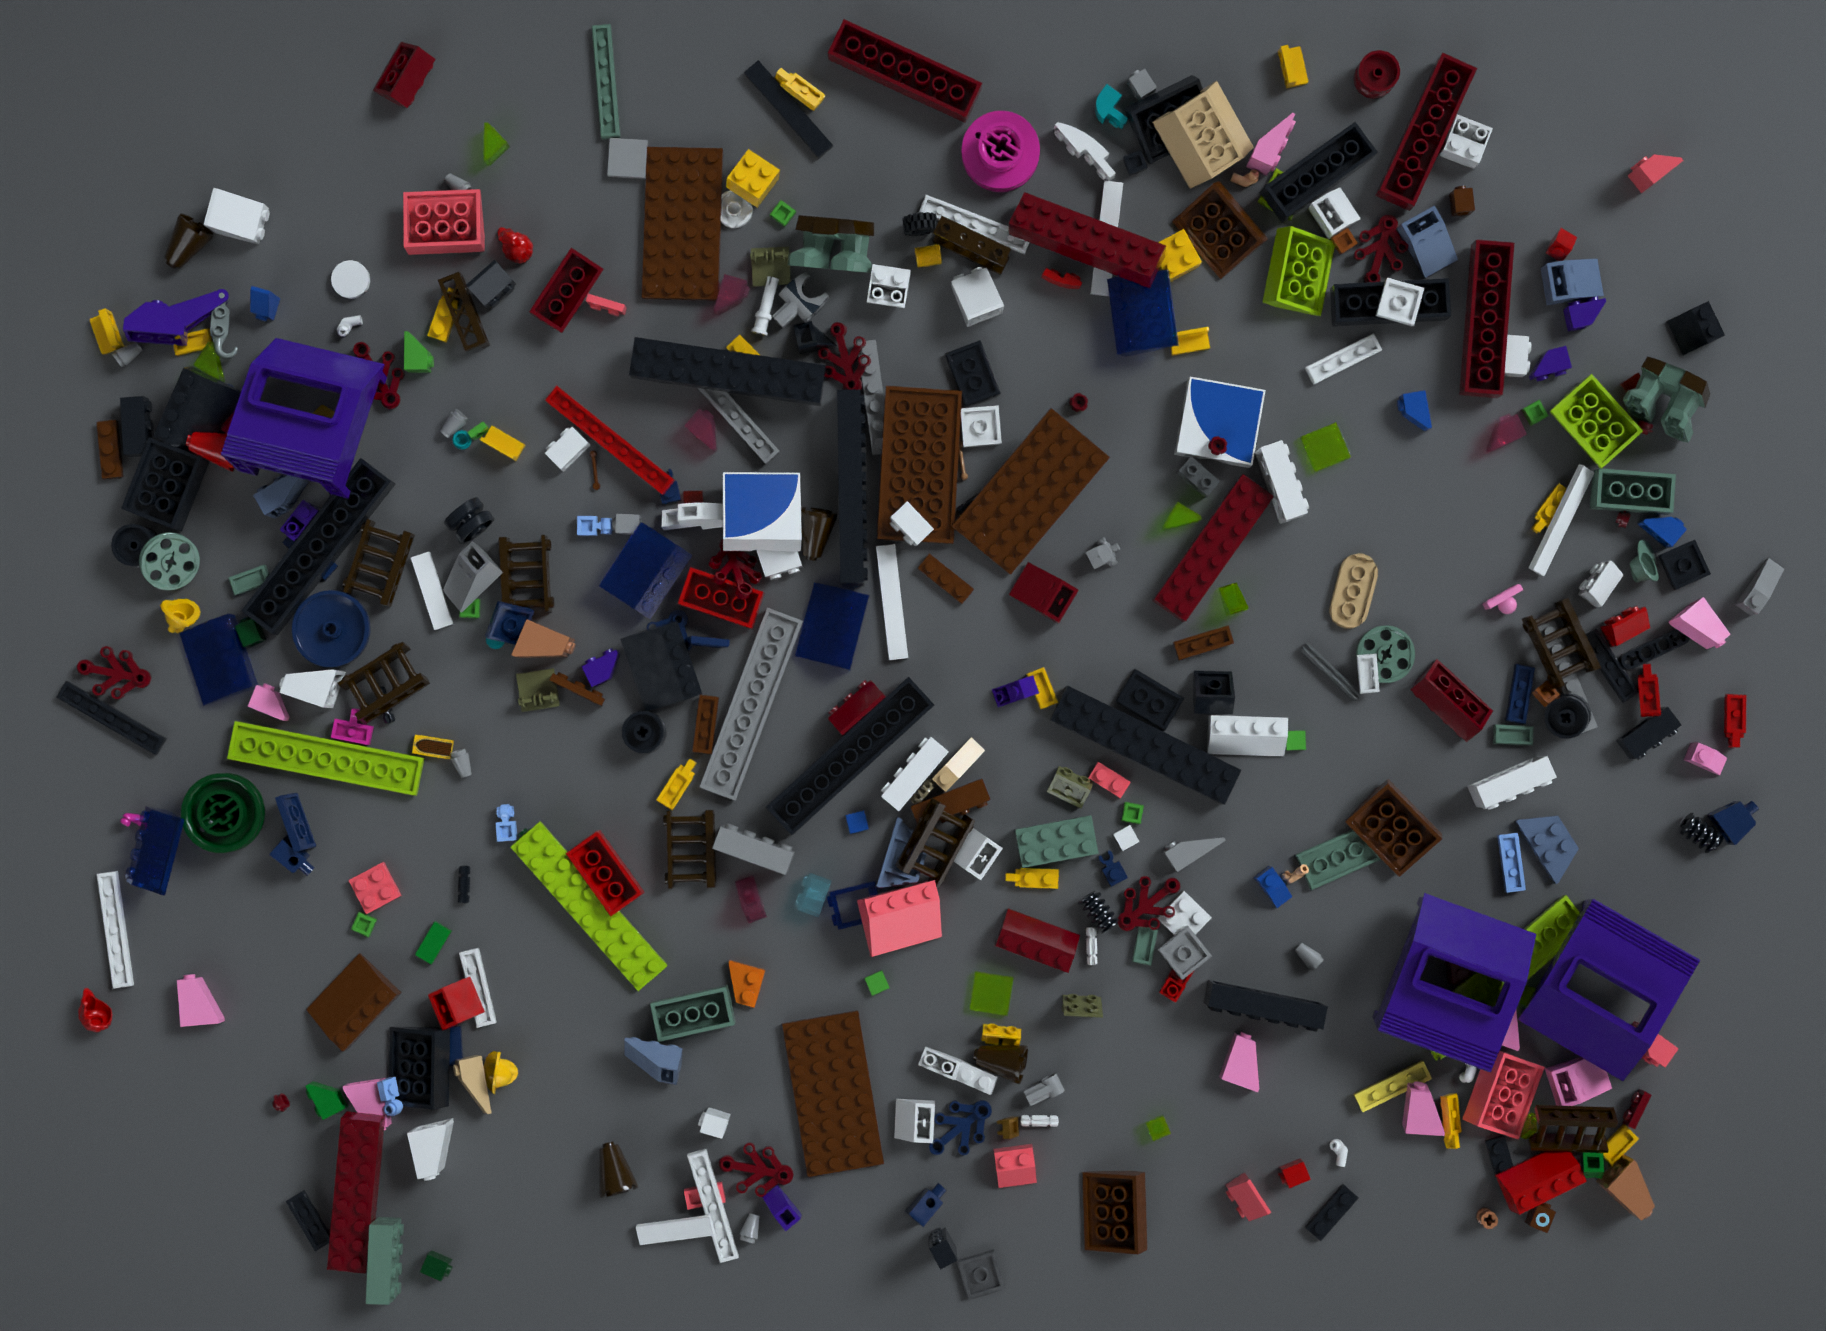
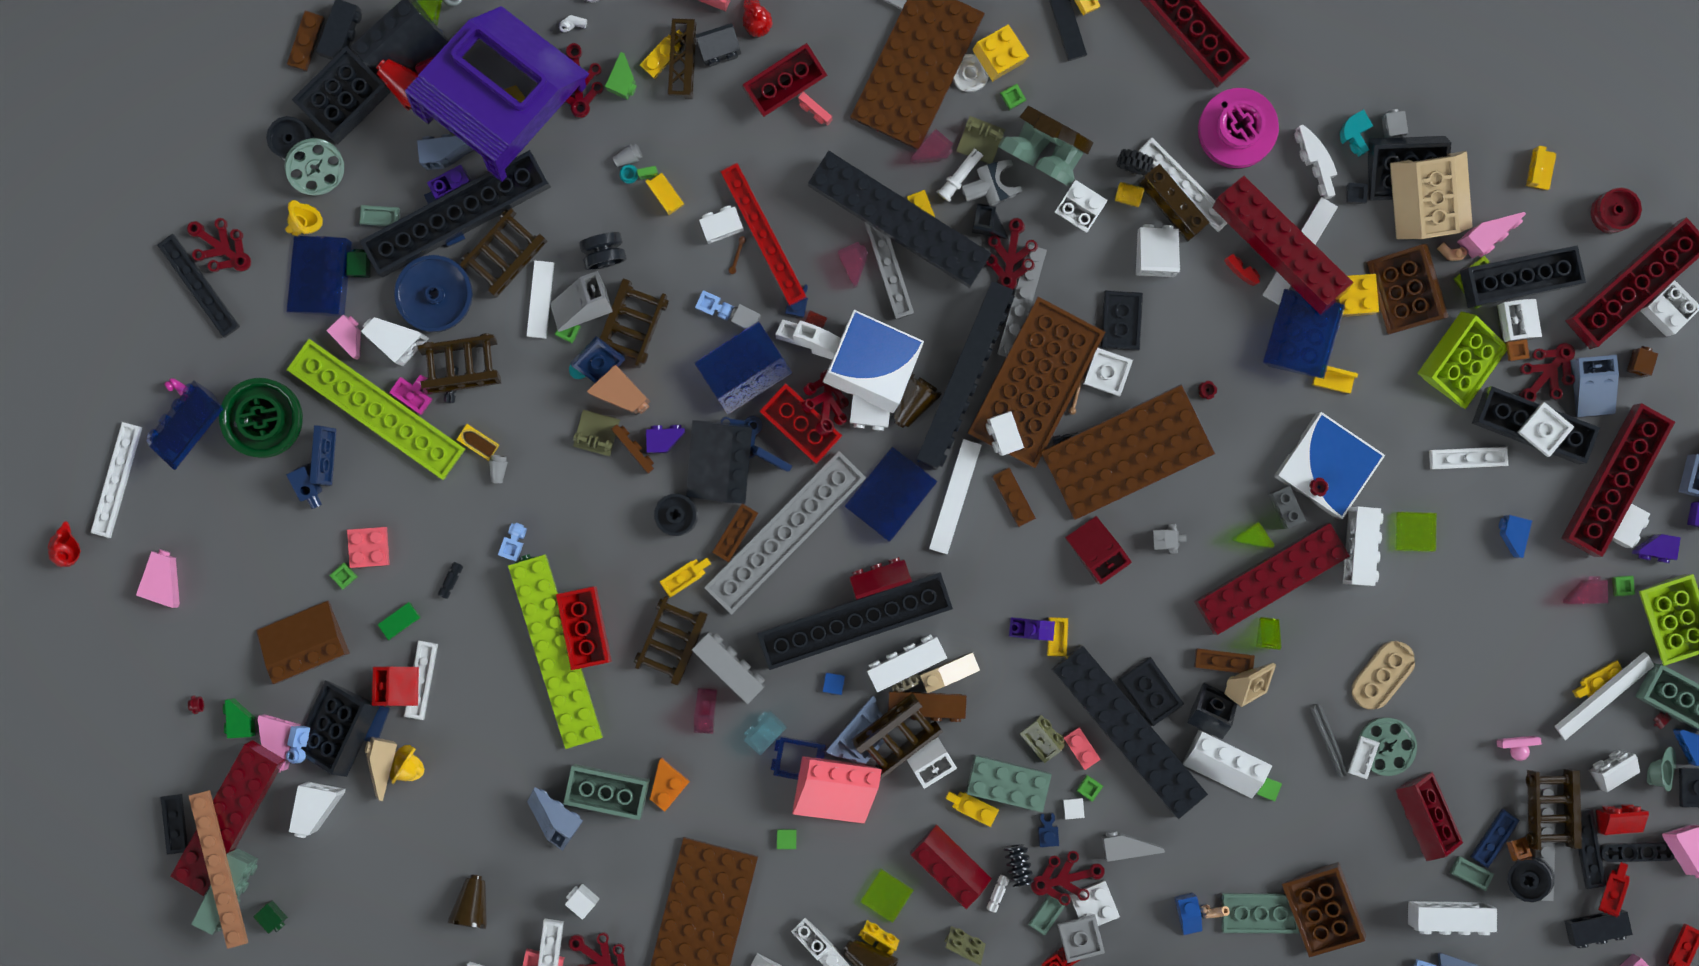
camera: 25 degrees right, 0 degrees up
(368, 1242) = (218, 869): none -> nougat plate
(1235, 653) = (1249, 684): none -> tan slope

